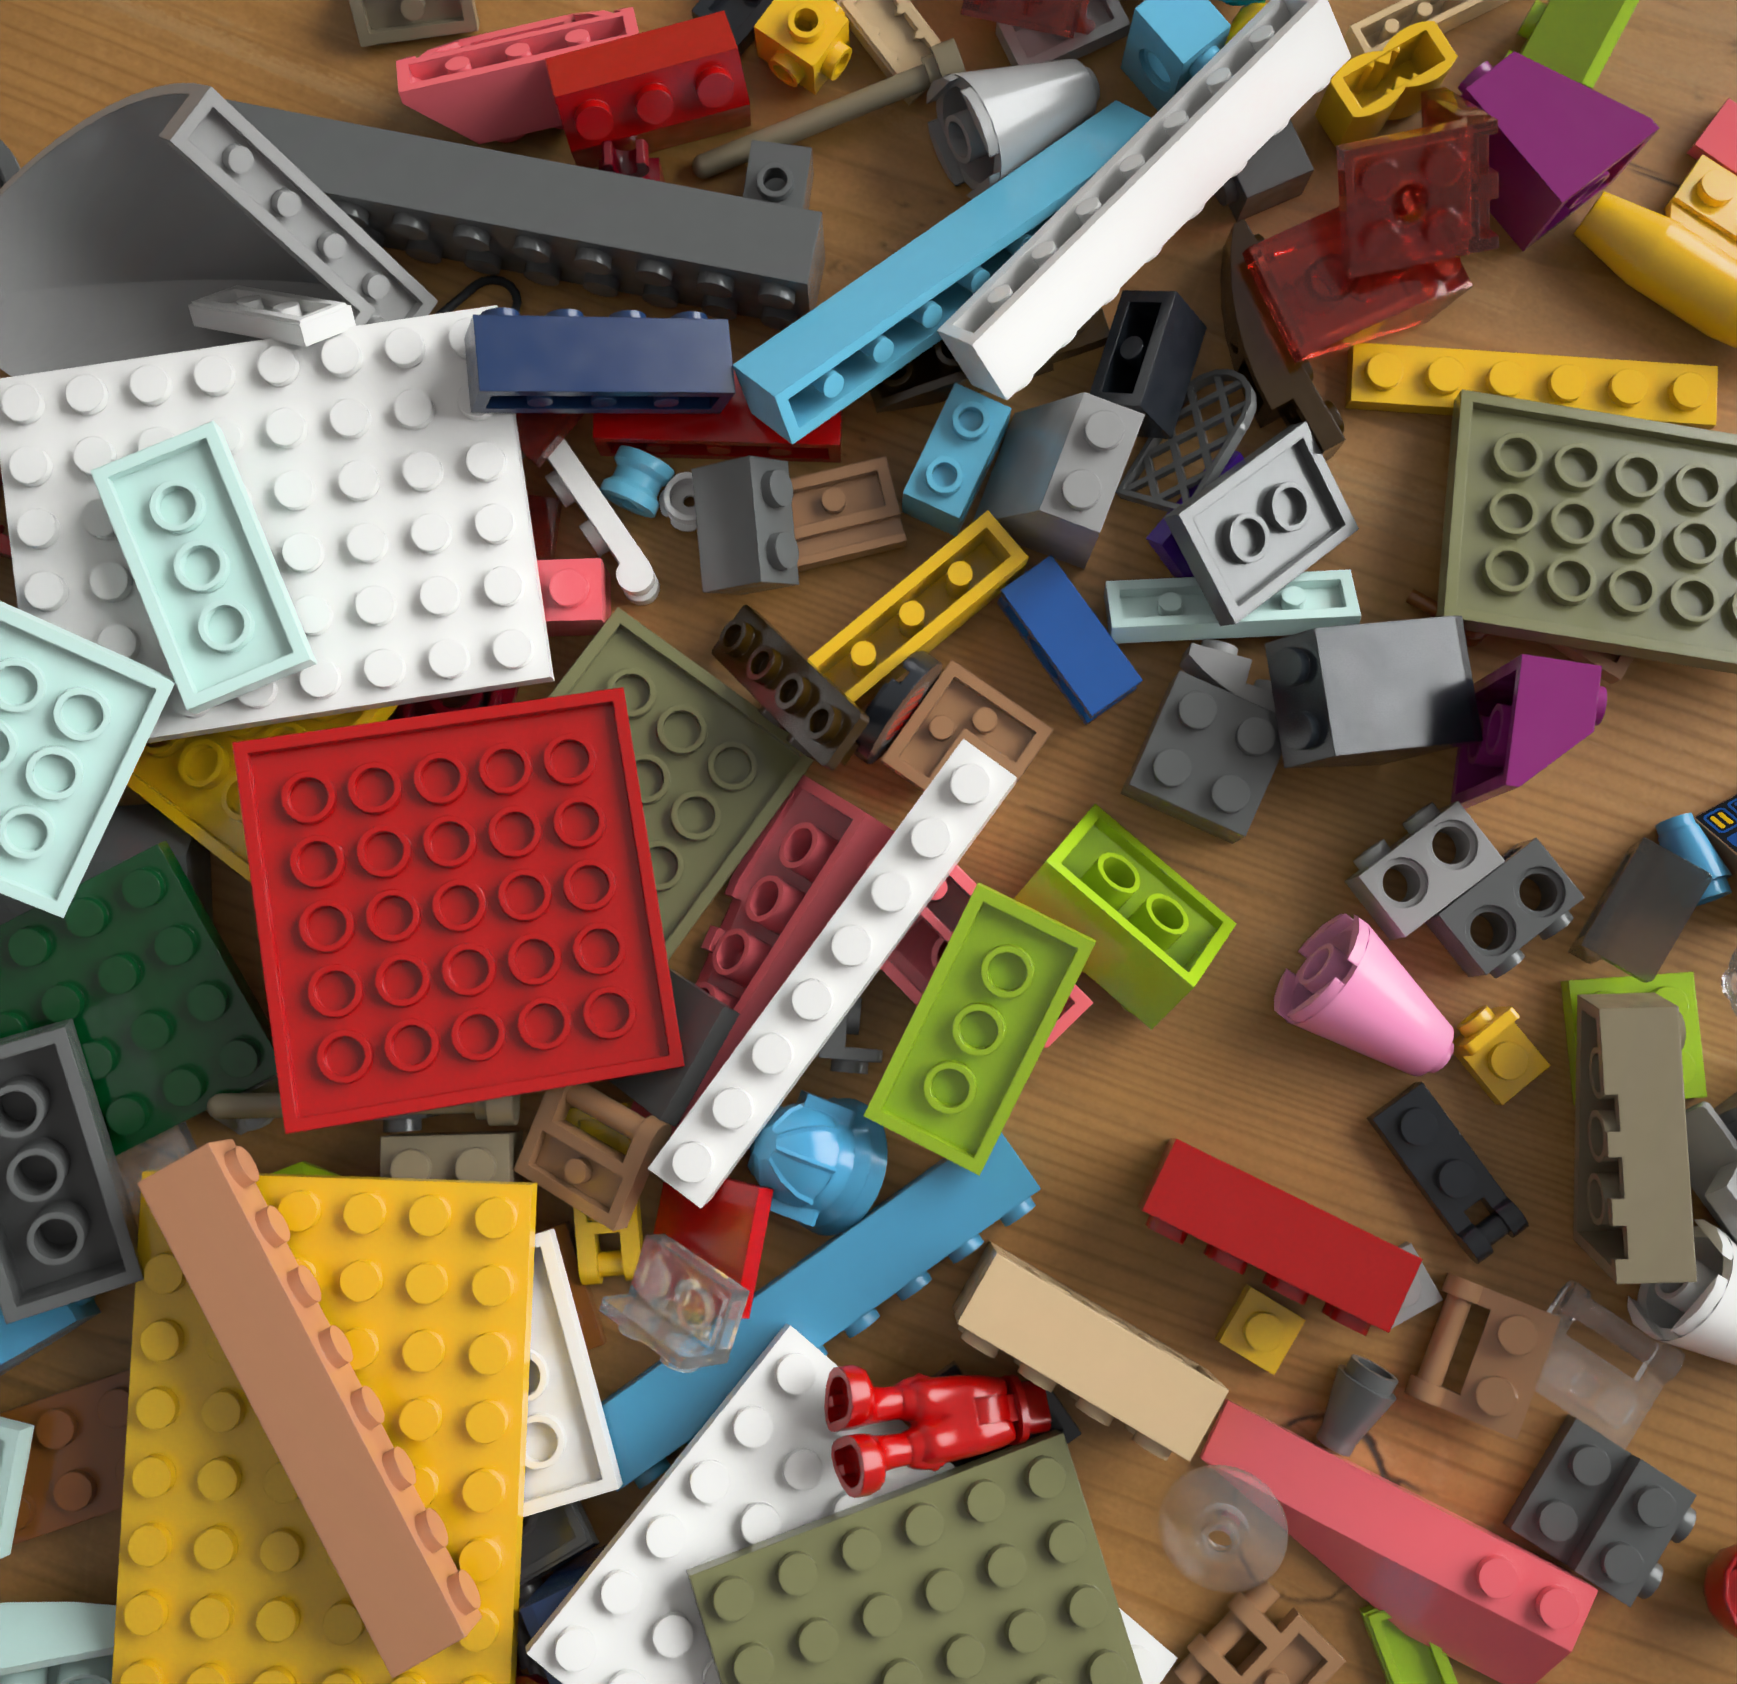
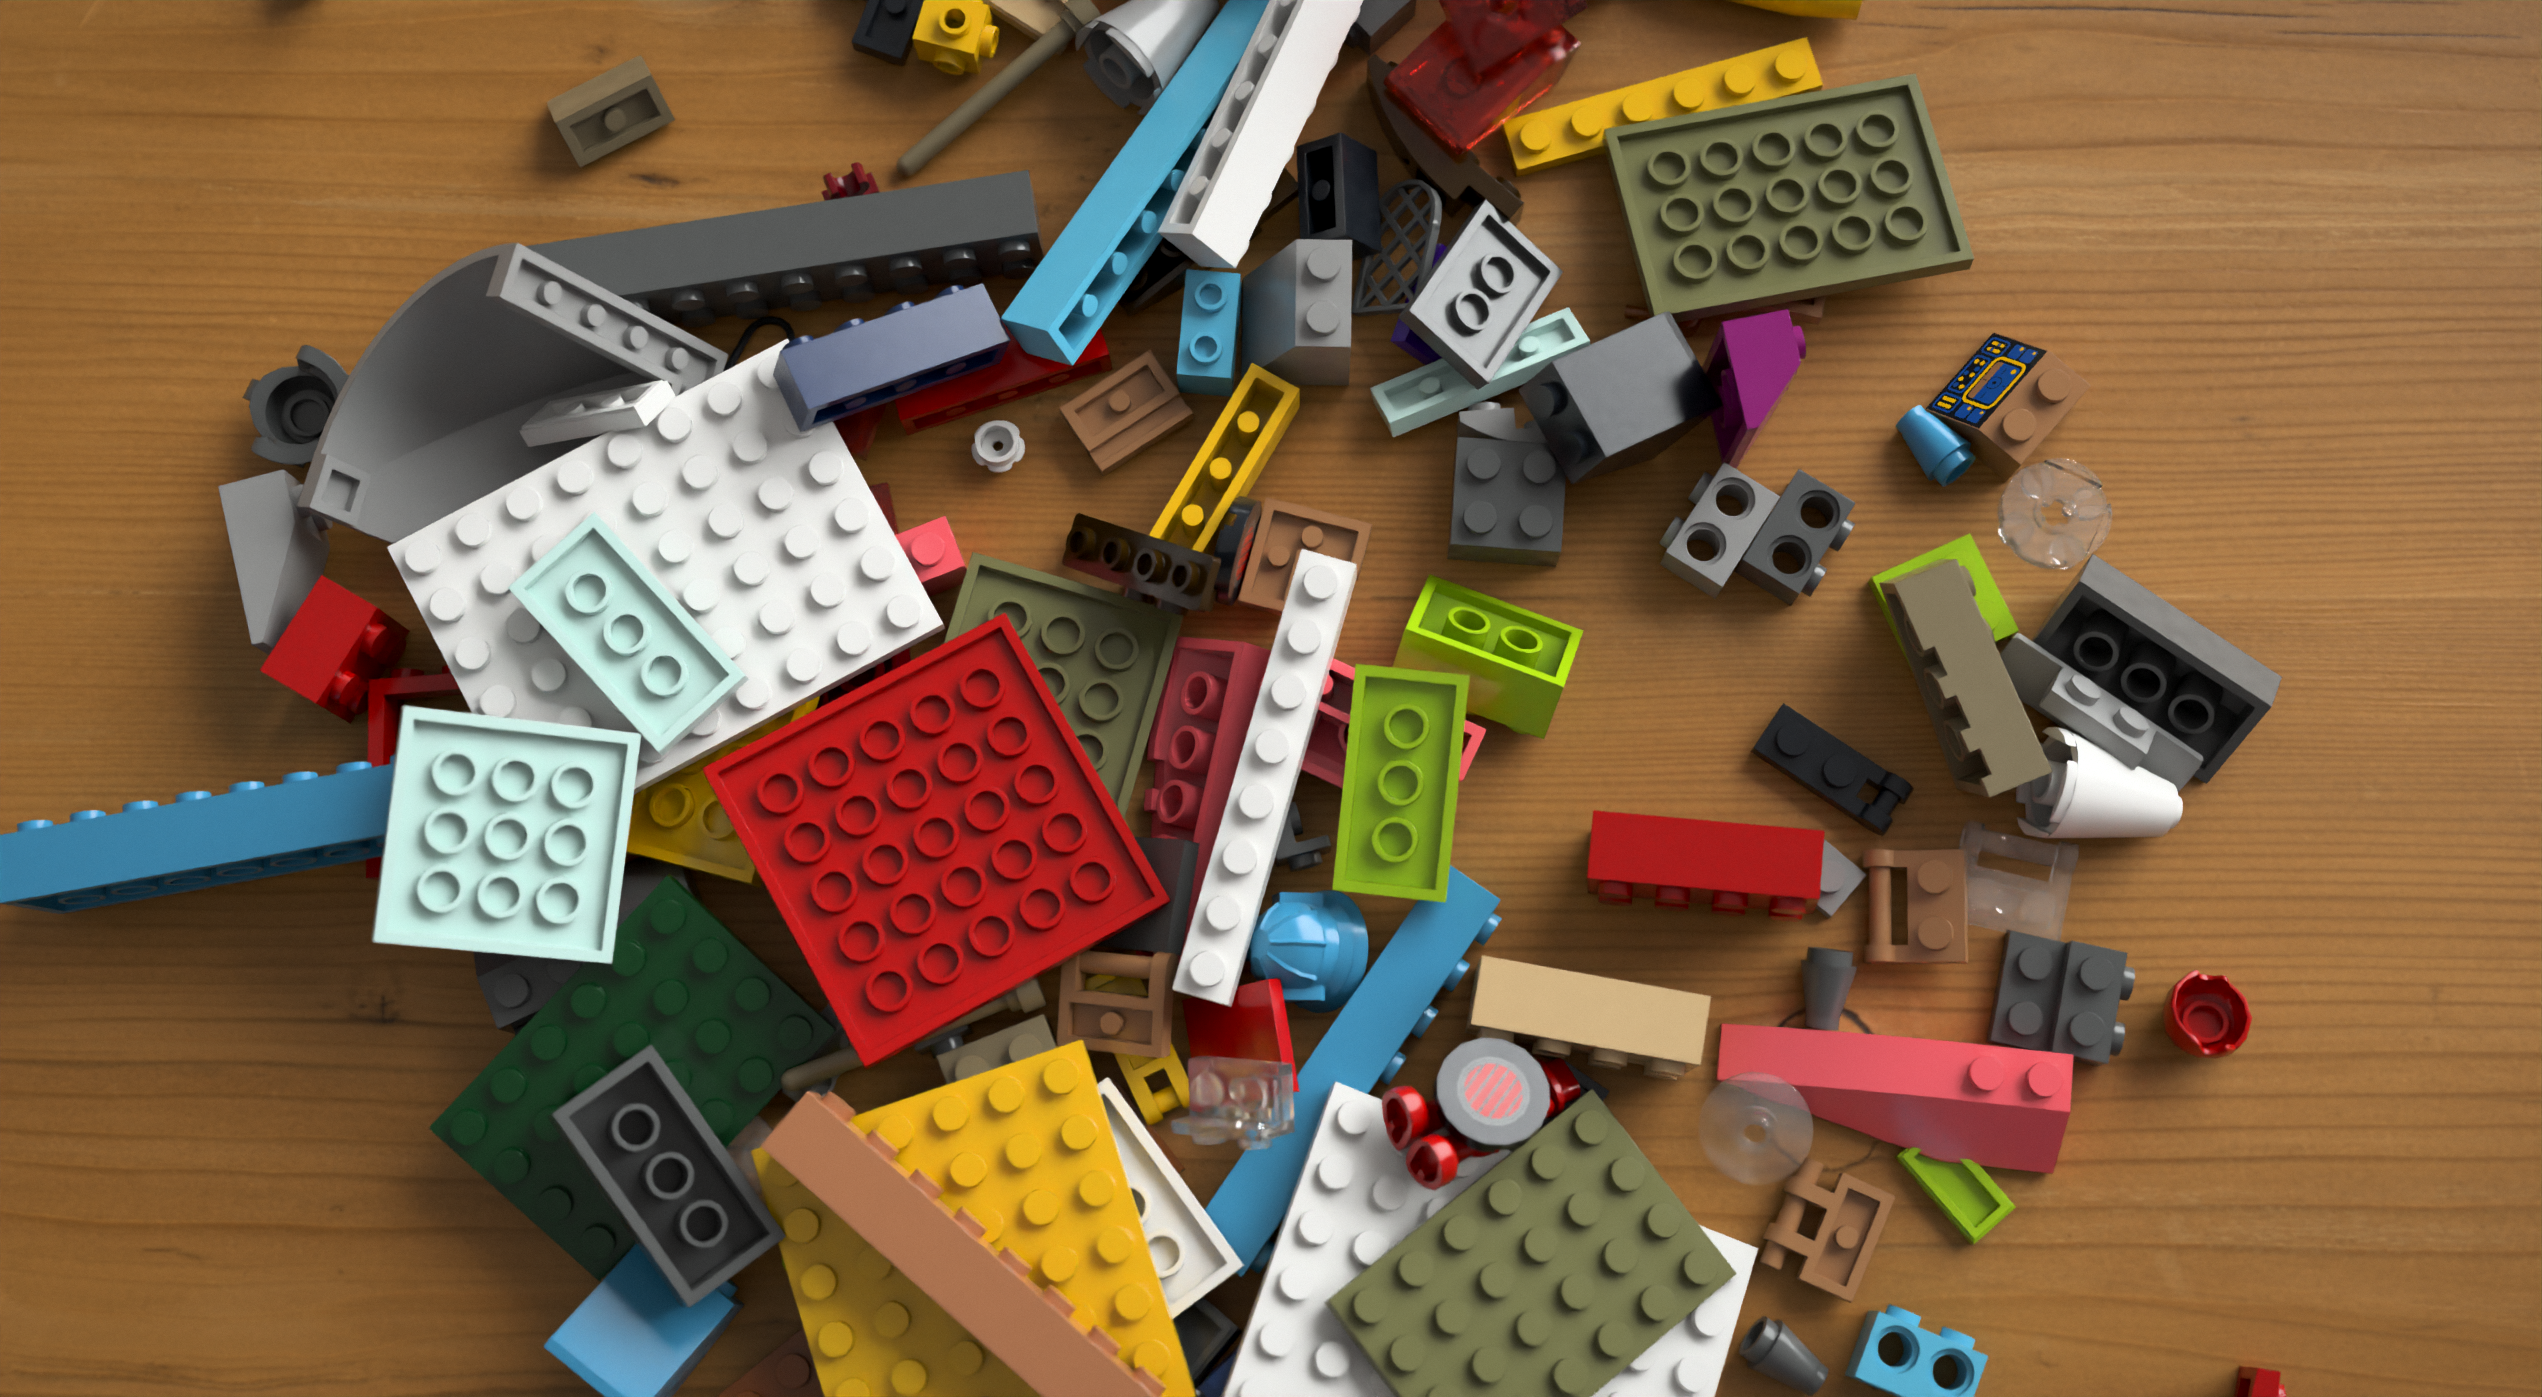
camera: 20 degrees left, 5 degrees down
(499, 80) = (732, 141): coral wedge -> none
(603, 525) = (933, 490): white plate -> none
(636, 481) = (948, 444): medium azure wheel -> none
(652, 87) = (845, 118): red slope -> none
(745, 526) = (1055, 448): dark grey brick -> none
(779, 174) = (975, 151): dark grey brick -> none
(950, 1411) = (1491, 1095): none -> tile
(1068, 640) = (1357, 447): blue piece -> none
(1260, 1329) = (1726, 955): yellow plate -> none
(1364, 999) = (1710, 651): bright pink cone -> none
(1497, 1052) = (1836, 657): yellow bracket -> none
(1642, 911) = (1908, 497): clear smoke panel -> none

